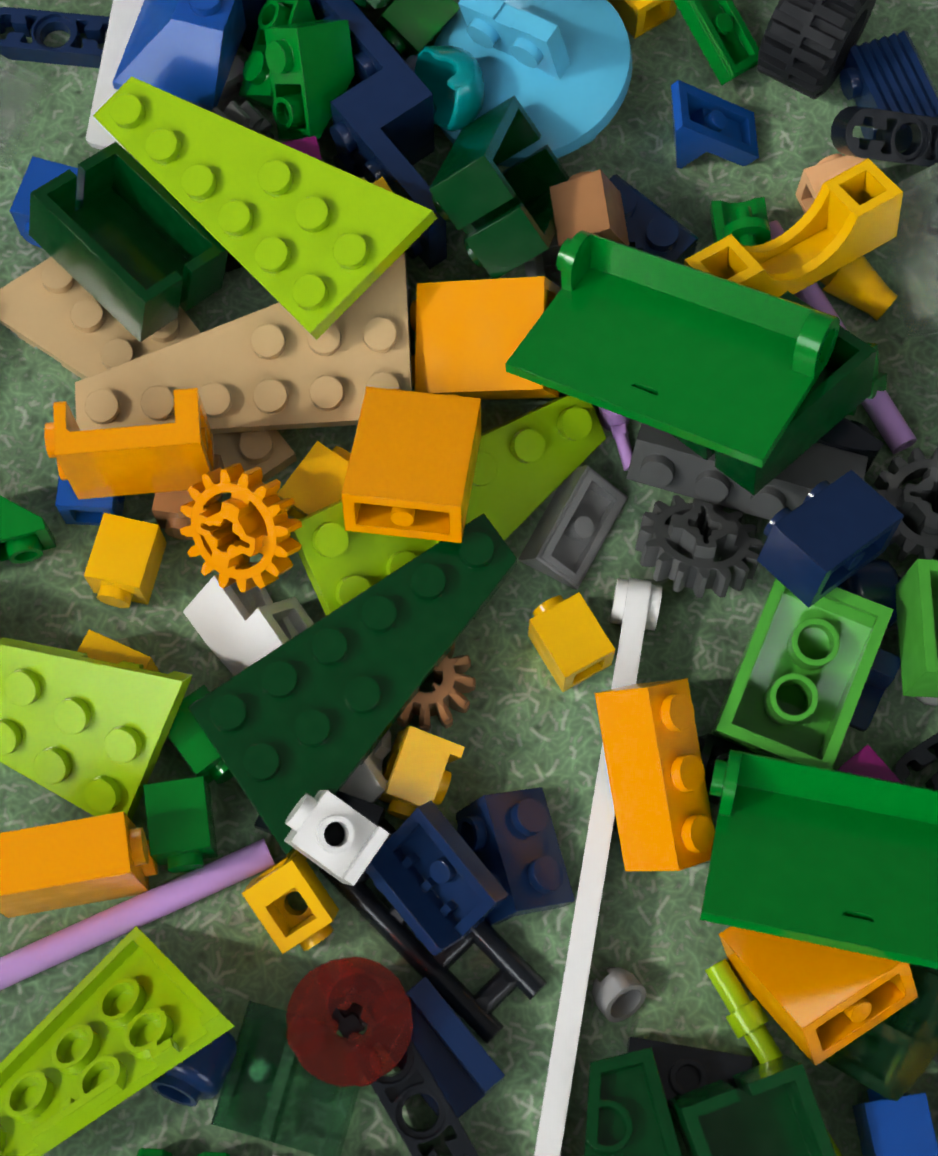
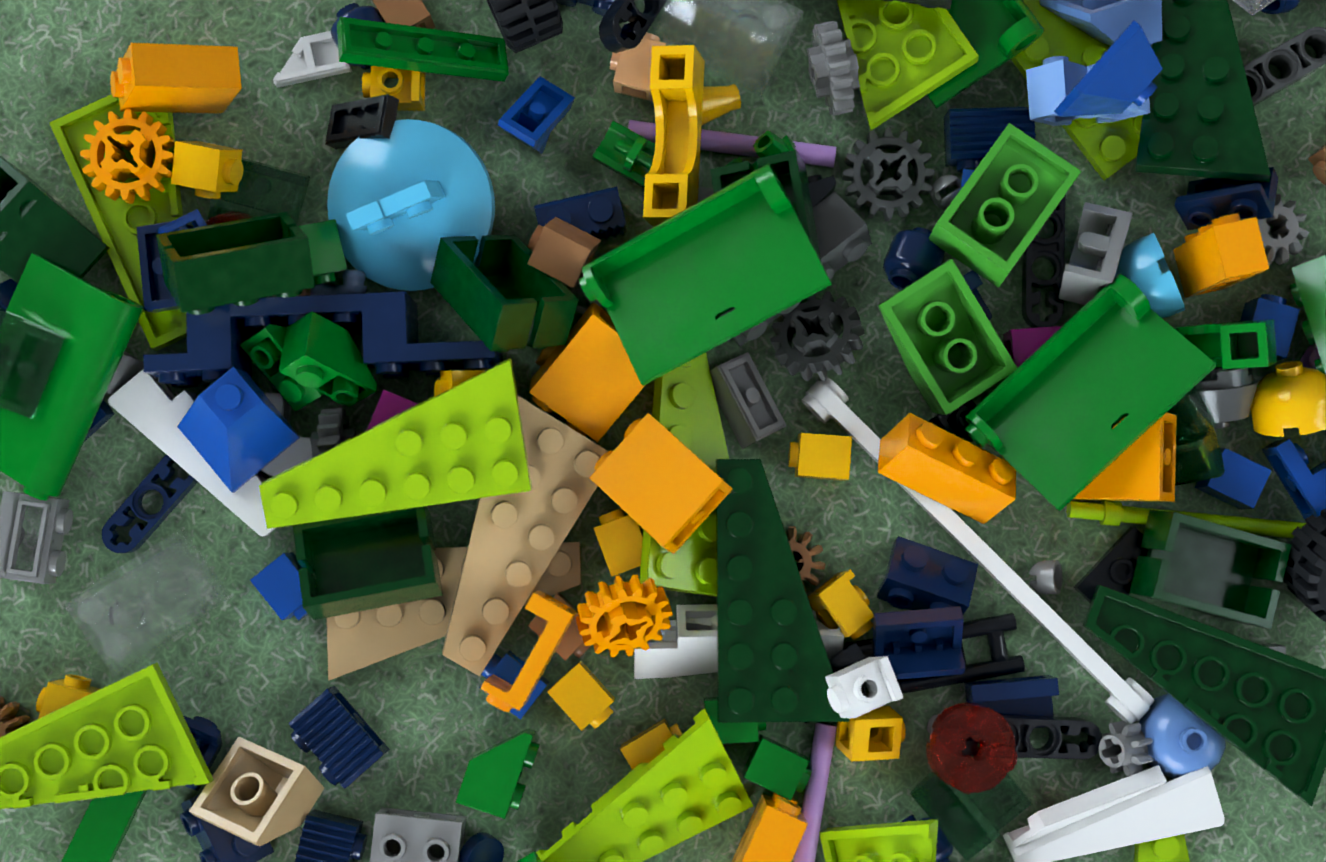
camera: 55 degrees left, 15 degrees up
(455, 84) = (399, 268): teal hair -> none
(828, 536) = (886, 265): dark blue brick -> none

